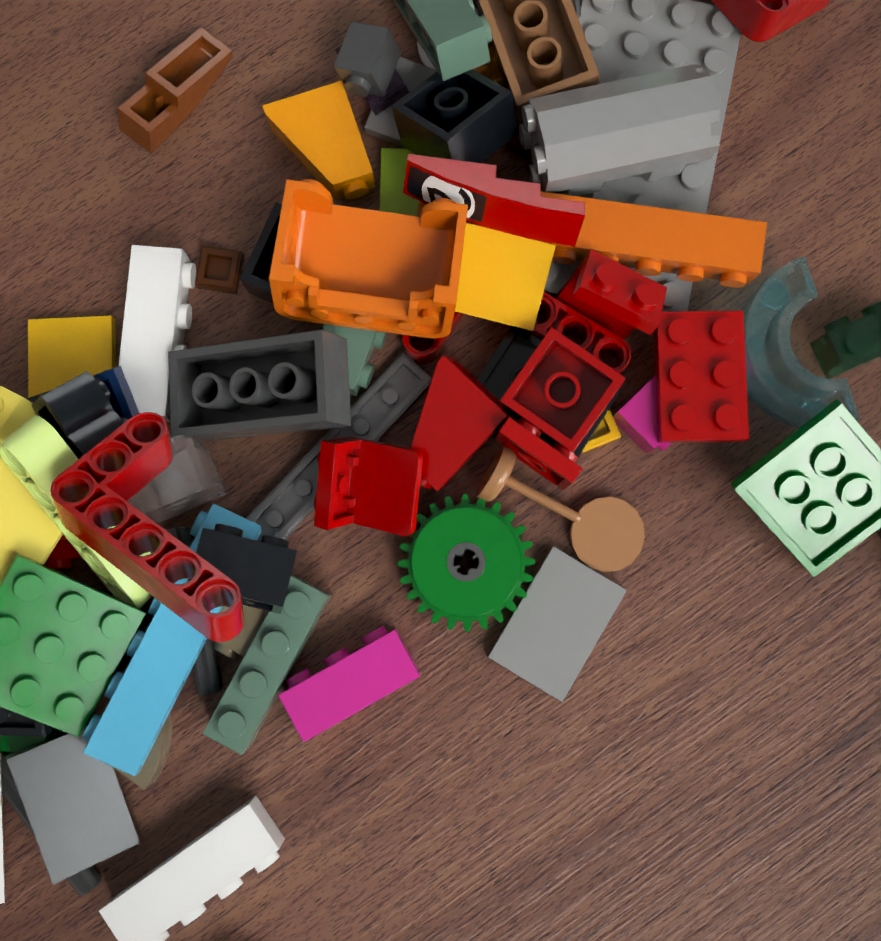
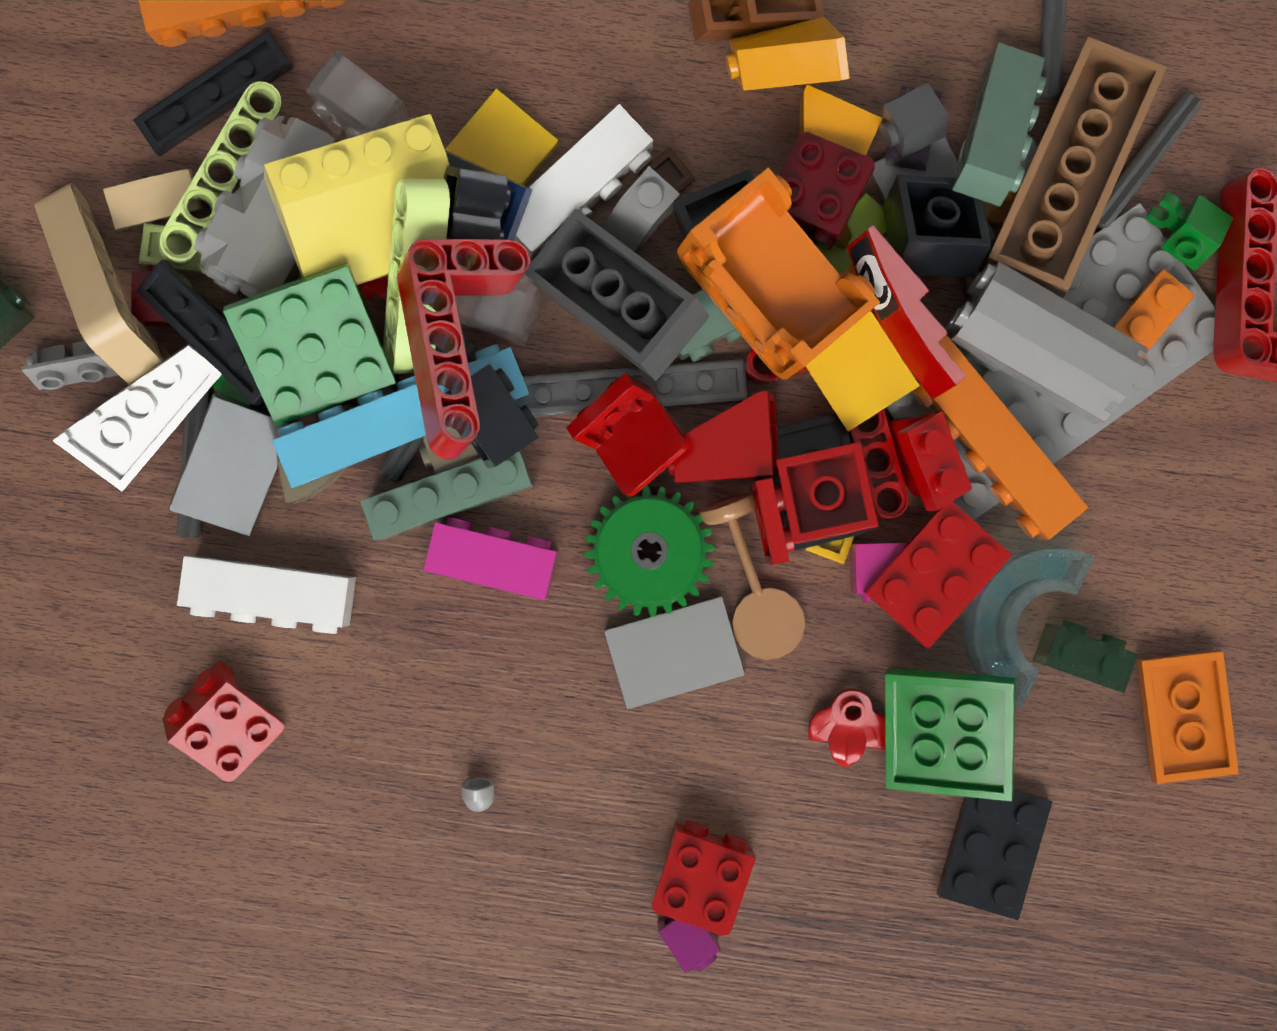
camera: 45 degrees right, 5 degrees up
(221, 306) = (641, 210): none -> light grey slope
(230, 97) = (789, 56): none -> light orange slope
(347, 164) = (825, 188): none -> dark red bracket
(507, 879) = (478, 793): none -> light grey hinge
(671, 36) = (1154, 309): none -> orange plate
(745, 779) = (703, 878): none -> red bracket
(746, 560) = (849, 733): none -> red plate
(777, 837) = (689, 944): none -> magenta brick

